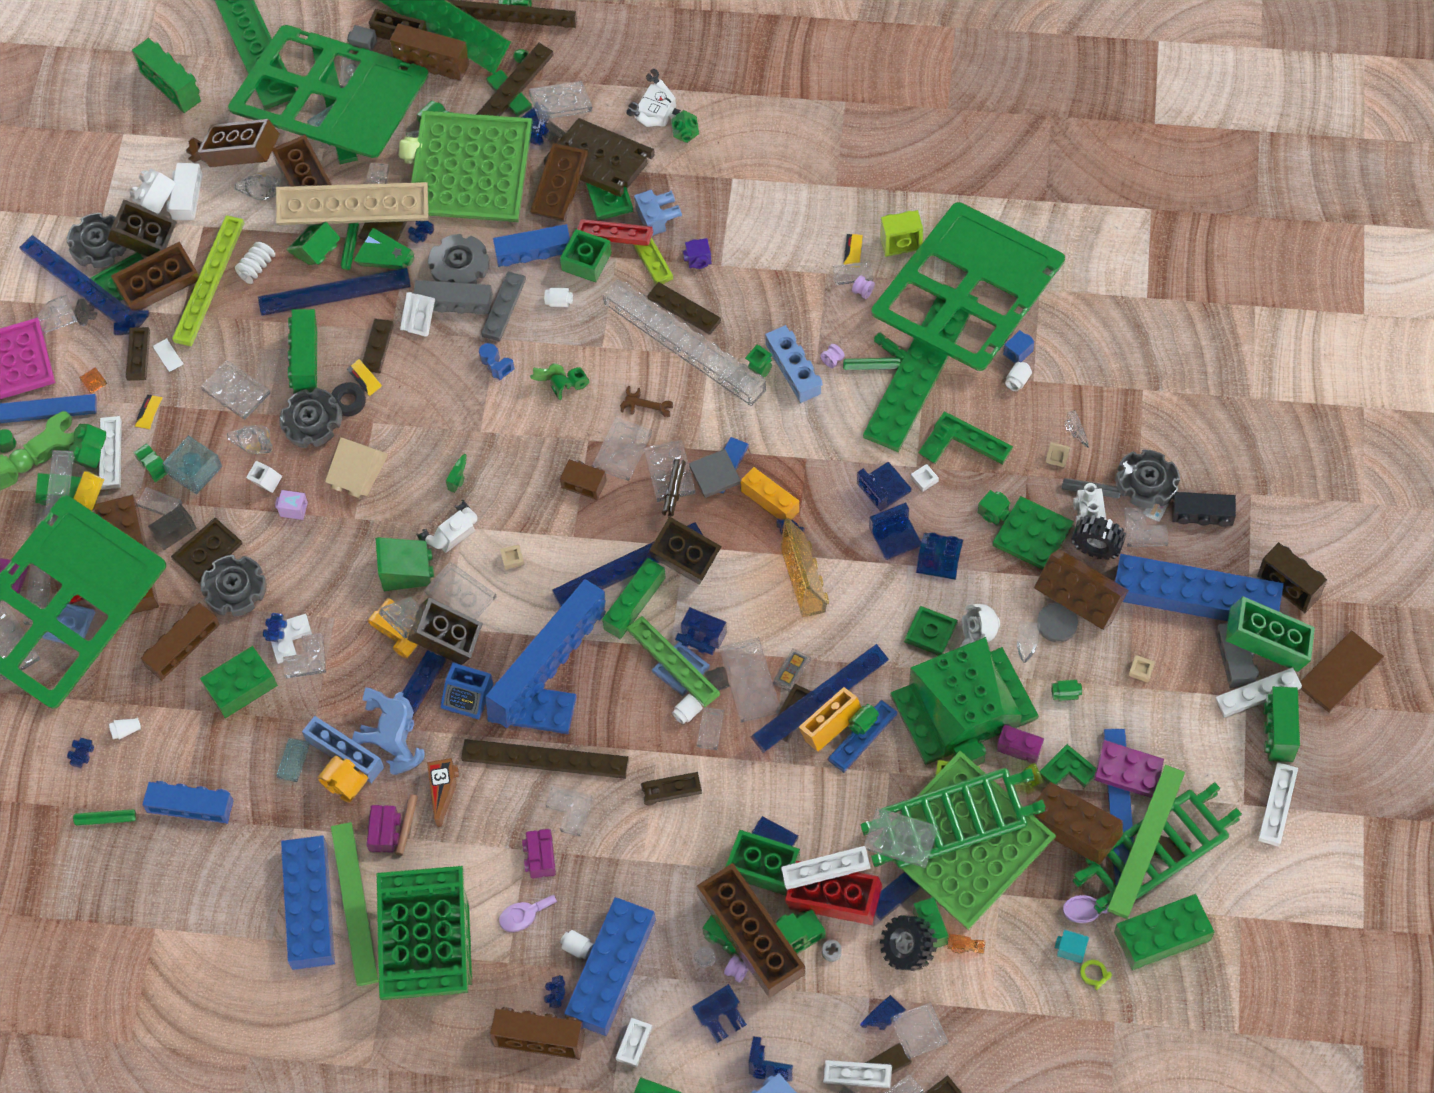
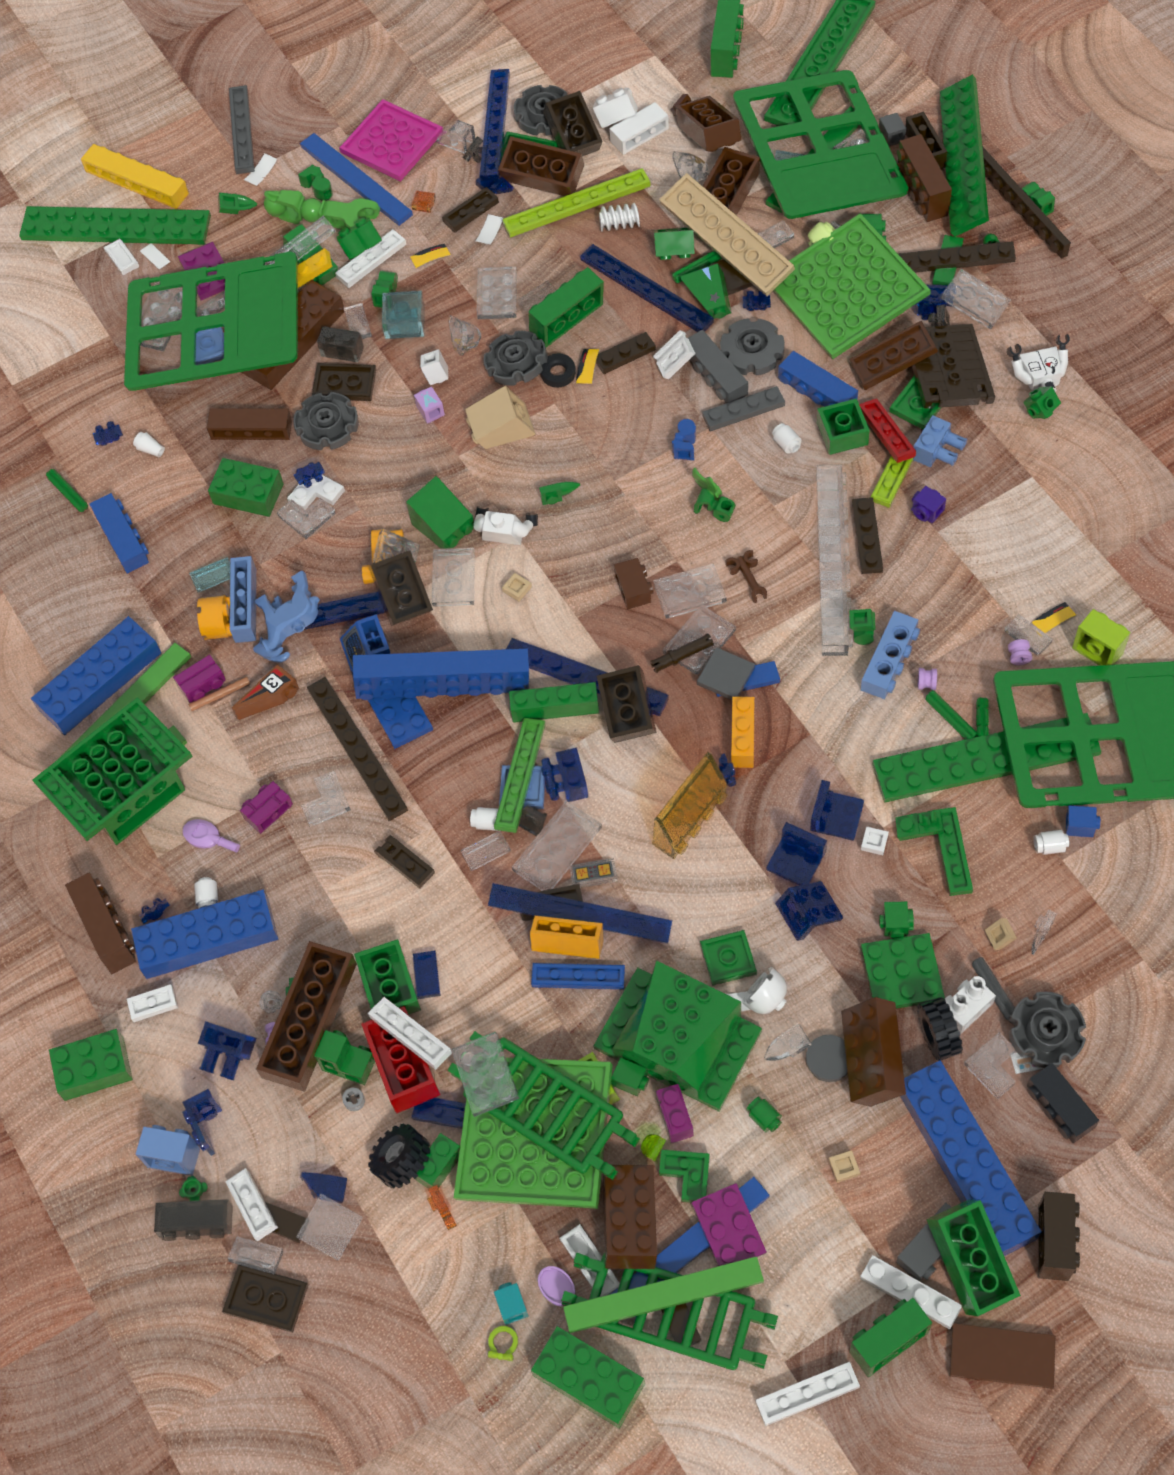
camera: 55 degrees right, 0 degrees up
(863, 719) = (587, 963): green brick -> none
(1063, 876) = (578, 1242): none -> white tile

